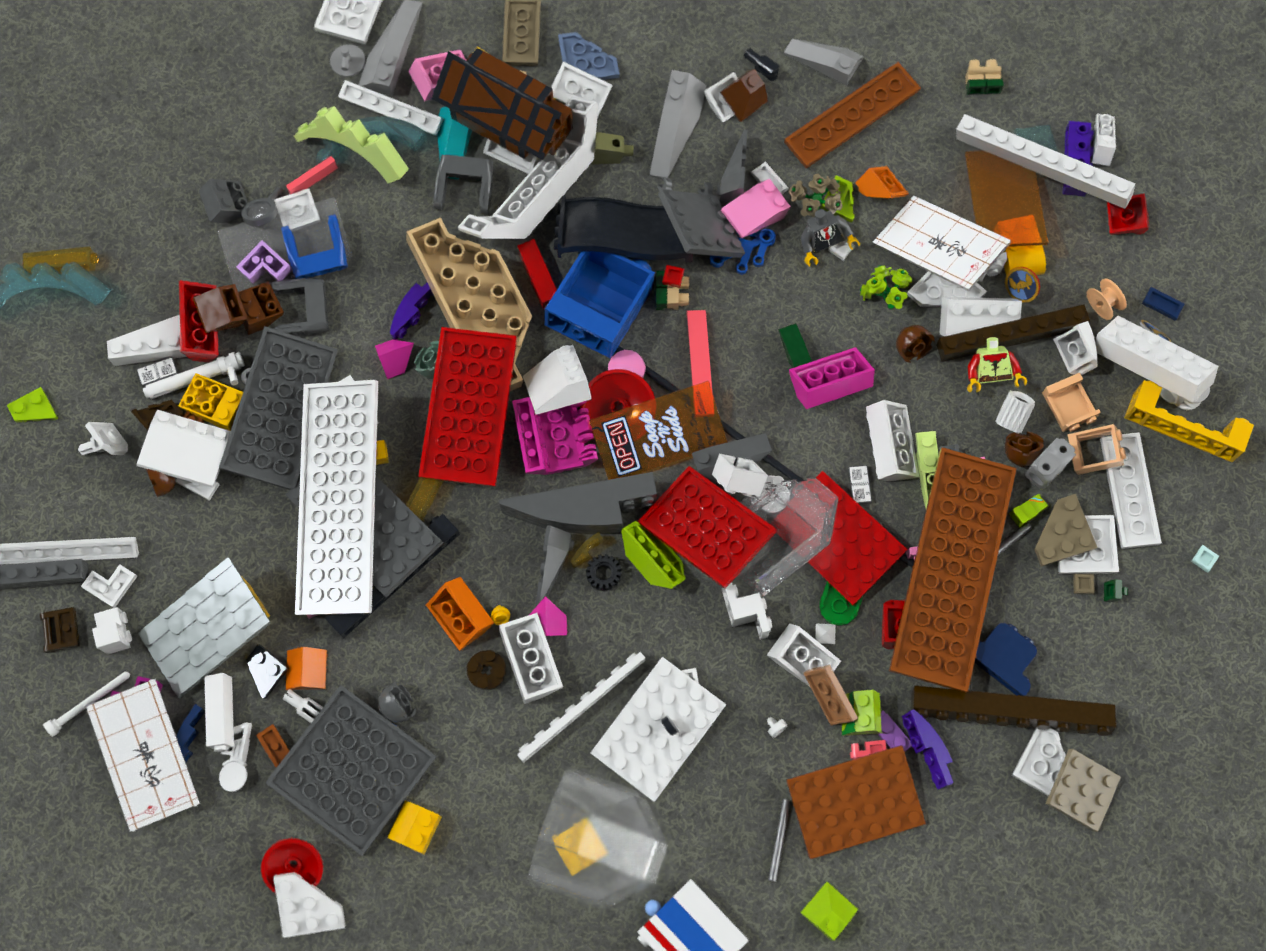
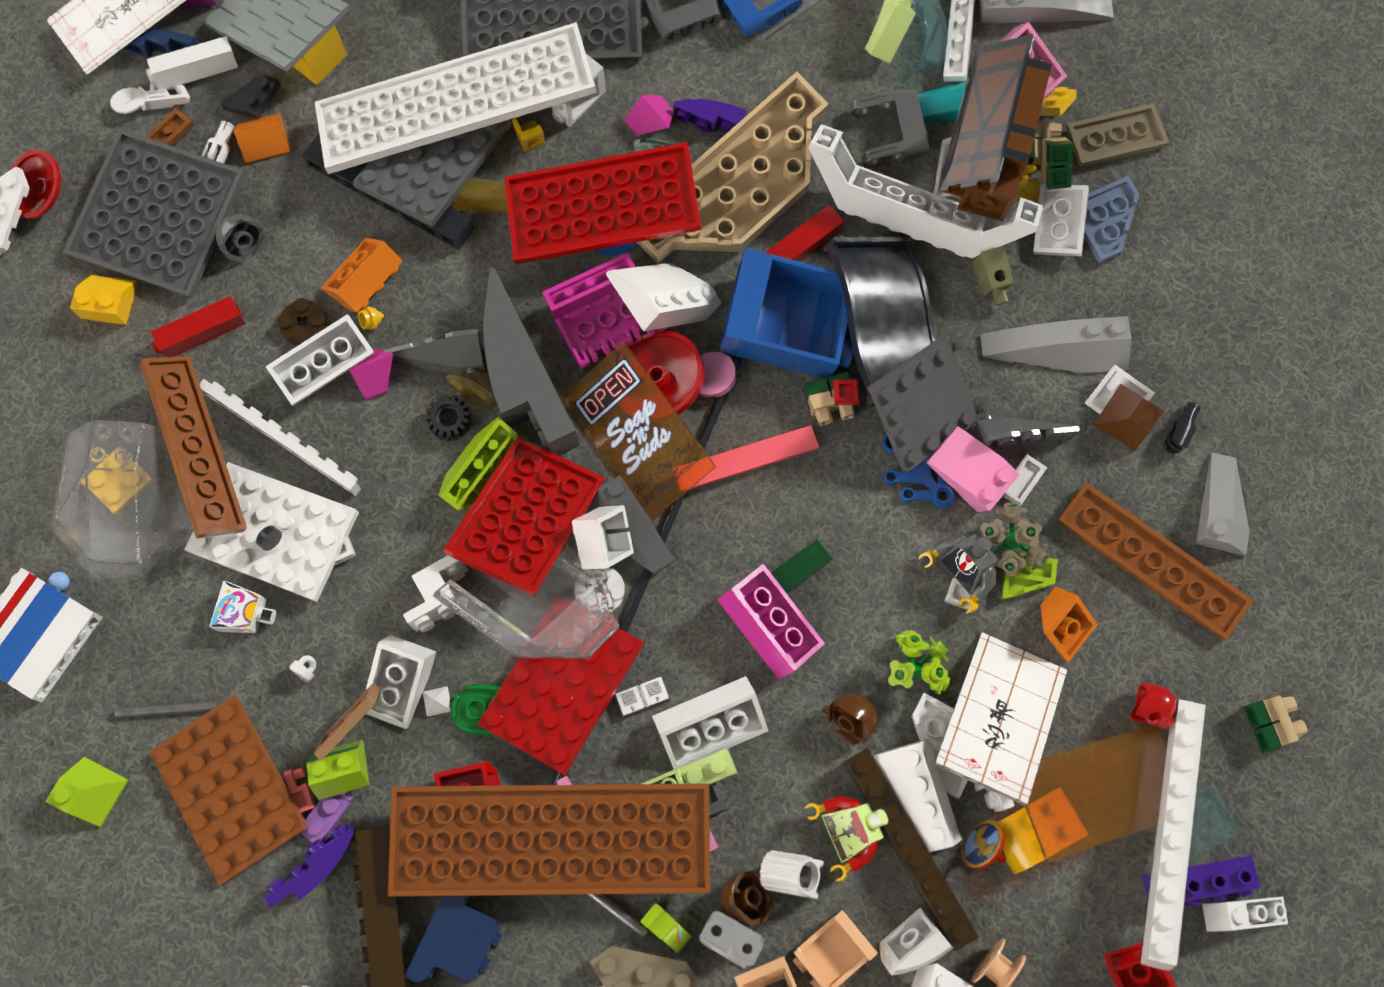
camera: 75 degrees right, 0 degrees up
(466, 755) = (197, 328): none -> red brick
(542, 73) = (1057, 162): none -> dark green hips
(576, 769) = (193, 446): none -> dark orange plate
(717, 765) = (240, 610): none -> torso
(954, 147) = (1154, 706): none -> red helmet

